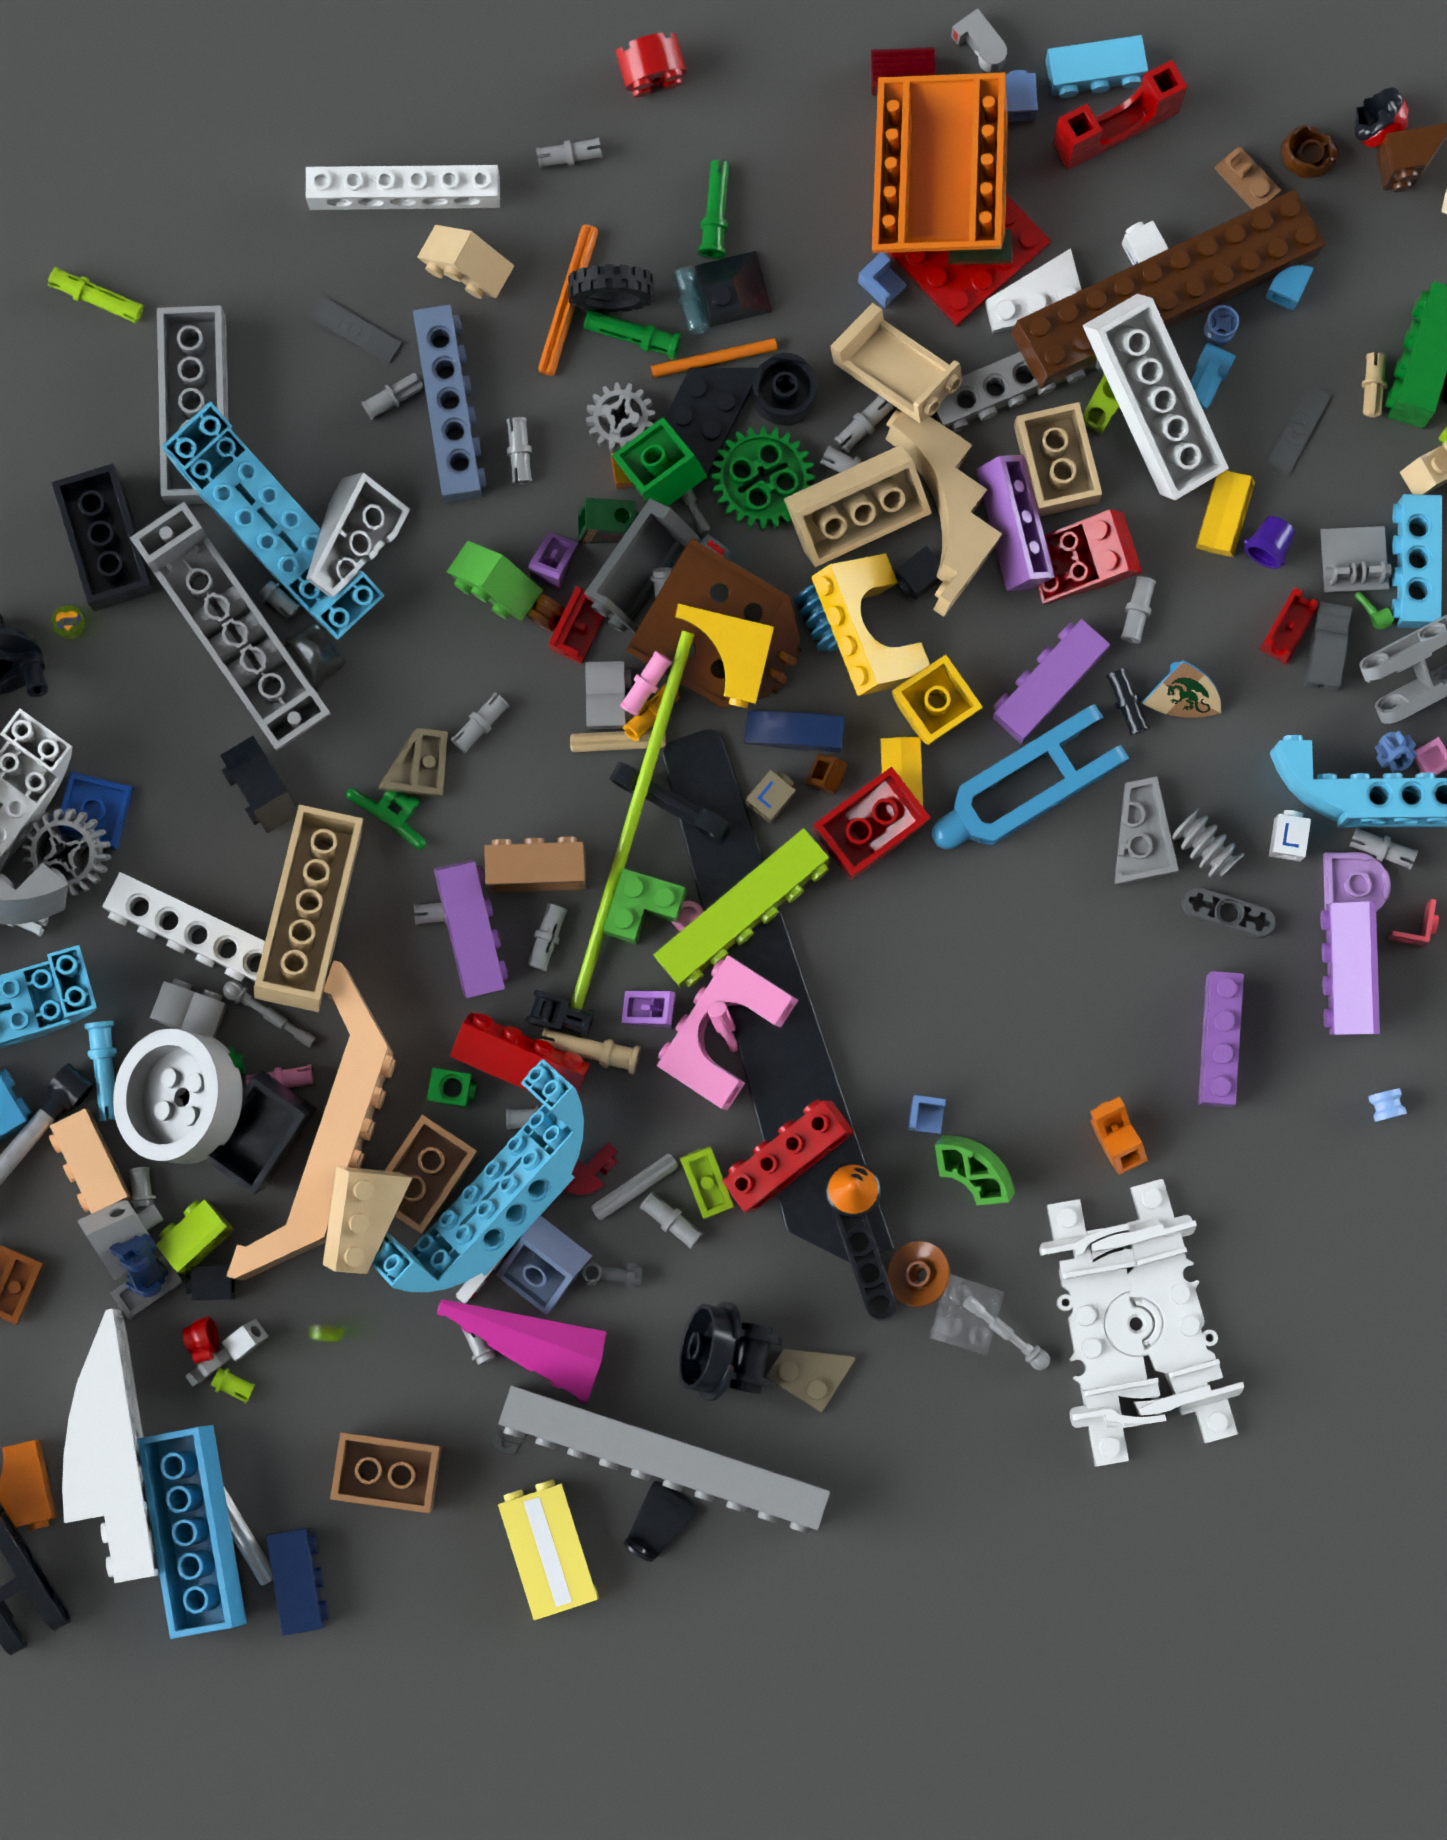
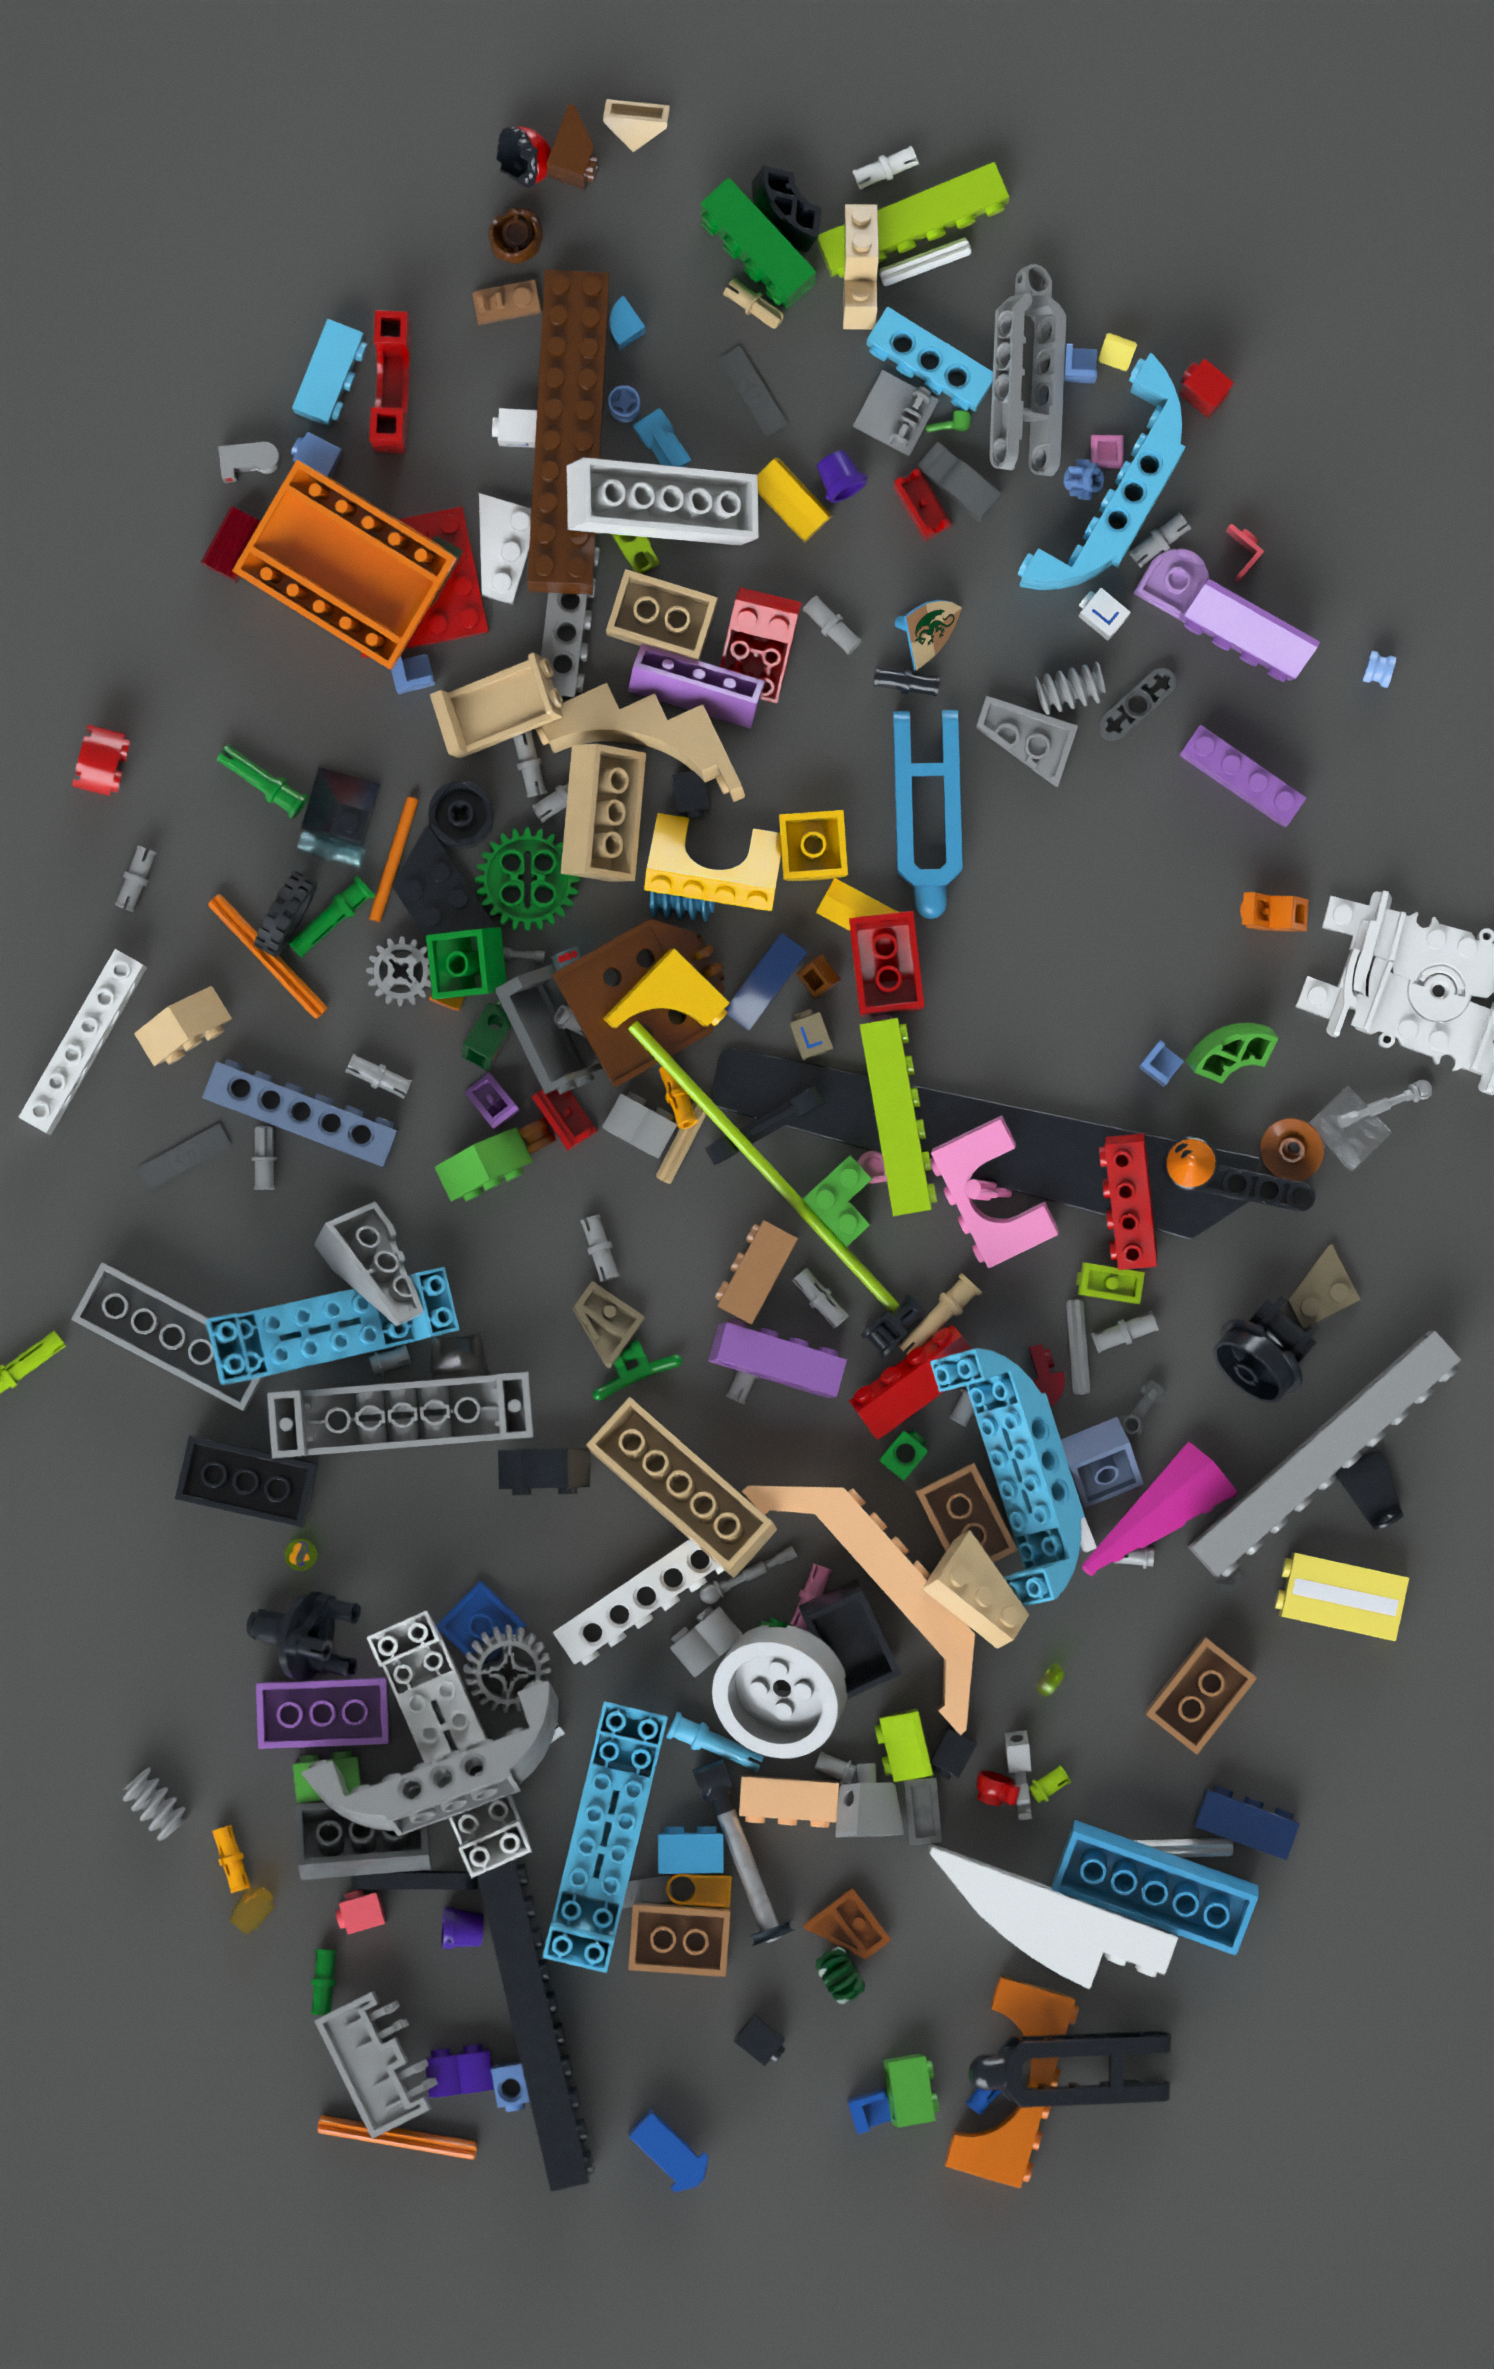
camera: 60 degrees left, 5 degrees up
(143, 1270) = (906, 1802): dark blue piece -> none
(646, 683) = (654, 1086): bright pink pin -> none
(649, 1008) = (933, 1246): medium lavender slope -> none
(1050, 681) = (851, 737): medium lavender brick -> none

